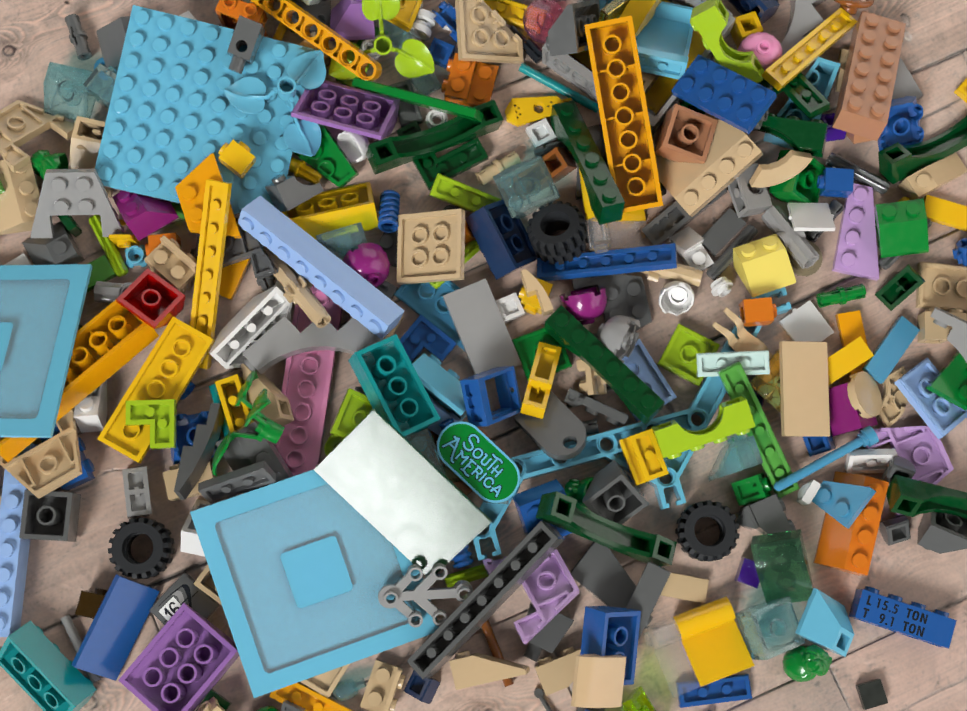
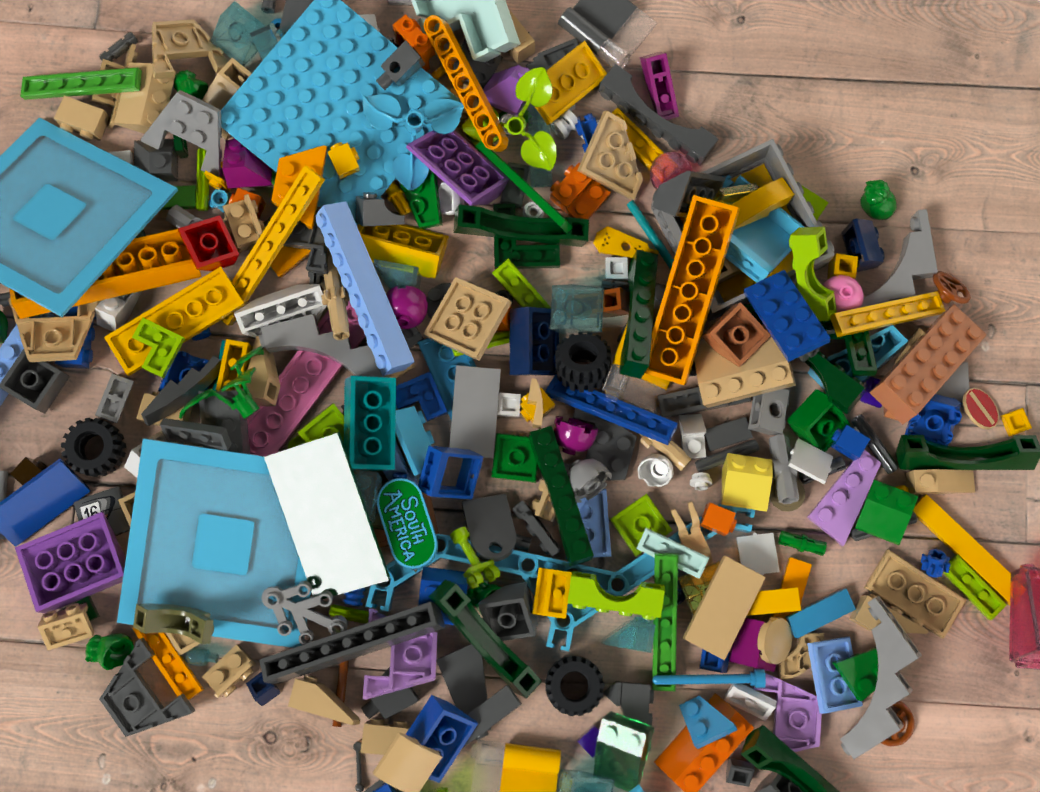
camera: 25 degrees right, 0 degrees up
(310, 665) = (174, 619): none -> olive arch
(389, 211) = (450, 269): blue piece -> none
(441, 52) = (567, 155): blue plate -> none
(496, 167) = (563, 279): tan pin -> none
(529, 46) = (646, 187): black axle -> none
(532, 450) = (474, 574): none -> lime bar
(540, 380) = (501, 480): yellow slope -> none
(686, 588) = (530, 723): tan tile -> none
(751, 489) = (633, 670): green bracket -> none
(781, 170) = (804, 407): tan tile -> none
(808, 492) = (680, 698): white tile -> none
(899, 287) = (857, 563): dark green slope -> none
(899, 466) = (770, 719): dark grey brick -> none
(934, 93) = (980, 408): none -> red piece

